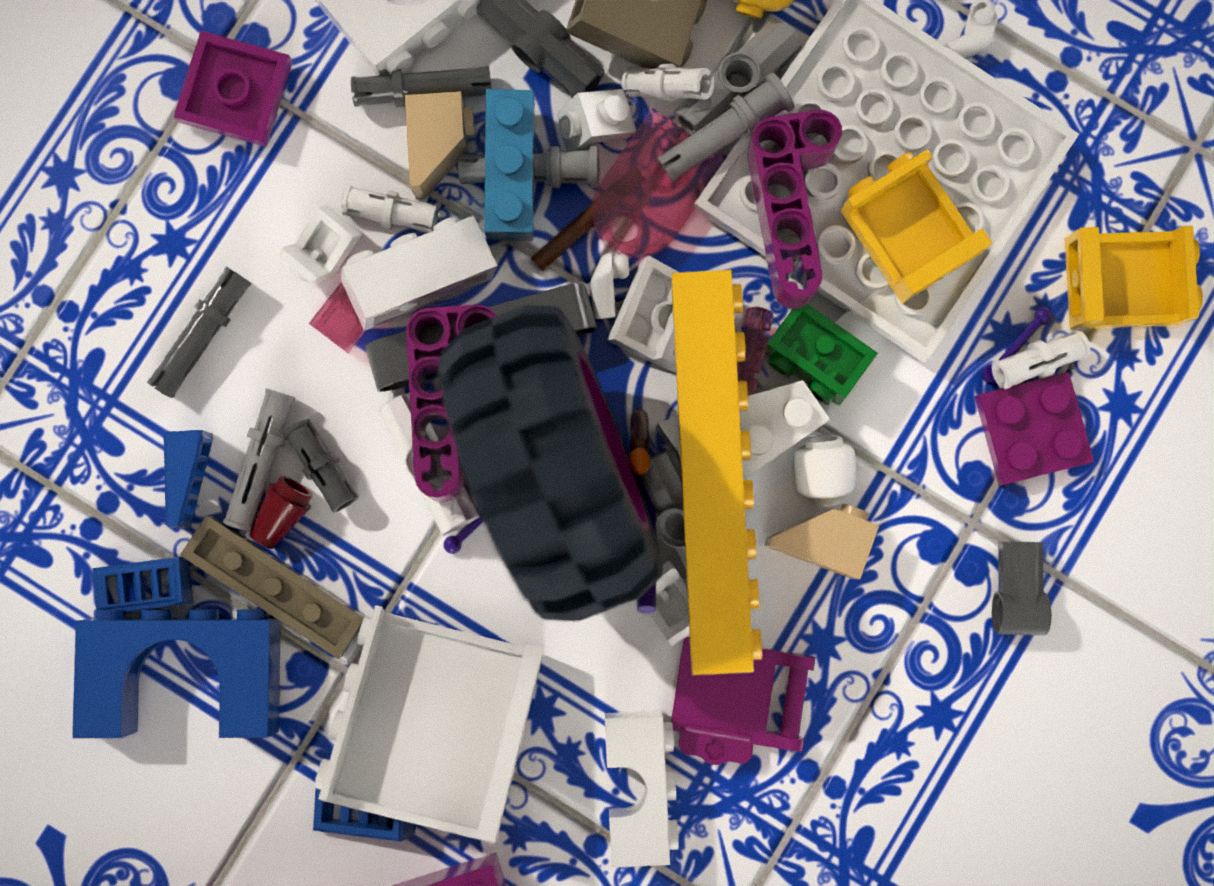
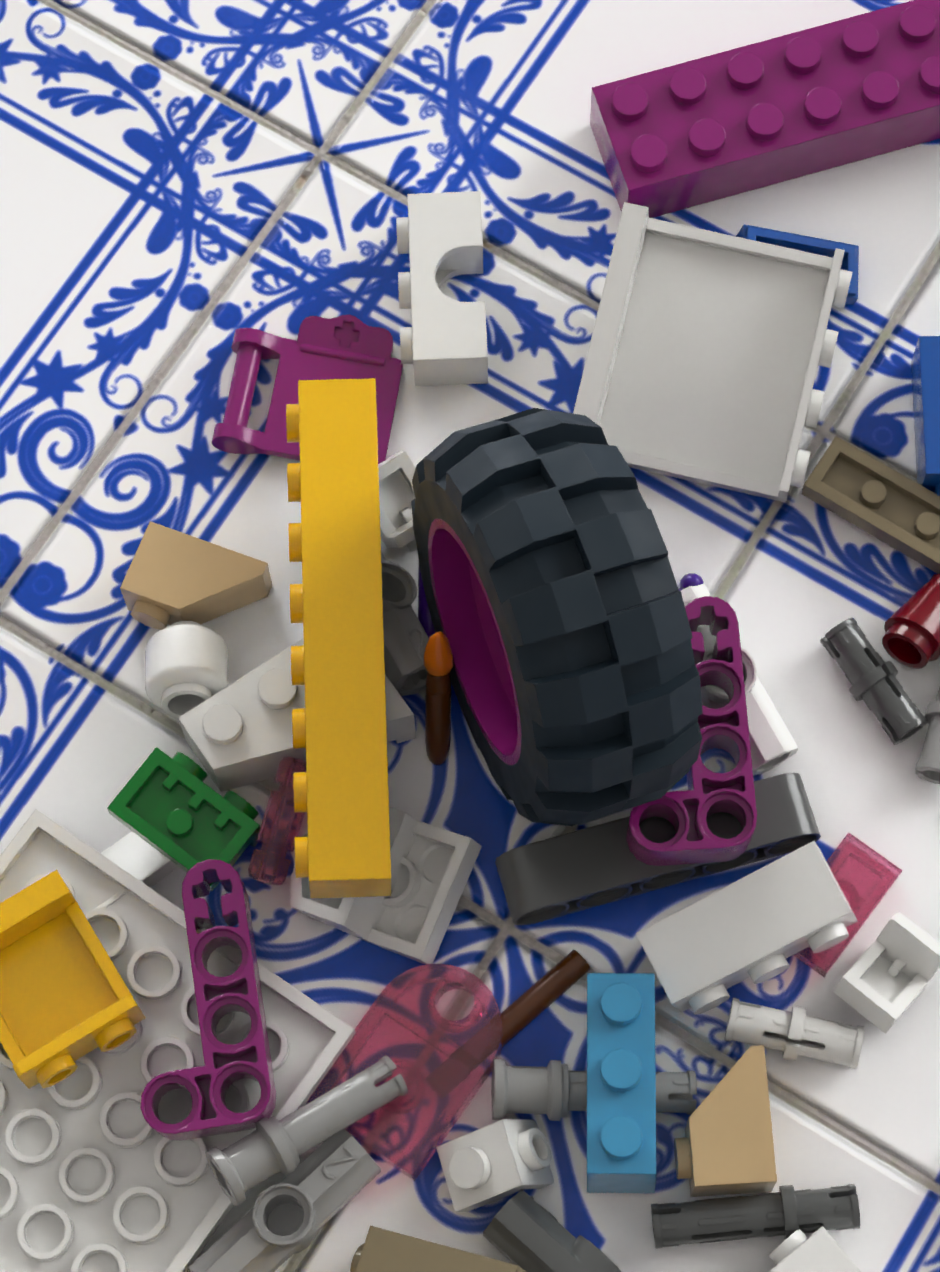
camera: 175 degrees left, 15 degrees down
(602, 284) = (487, 925): white arm -> none
(668, 82) = (389, 1202): white pin -> none

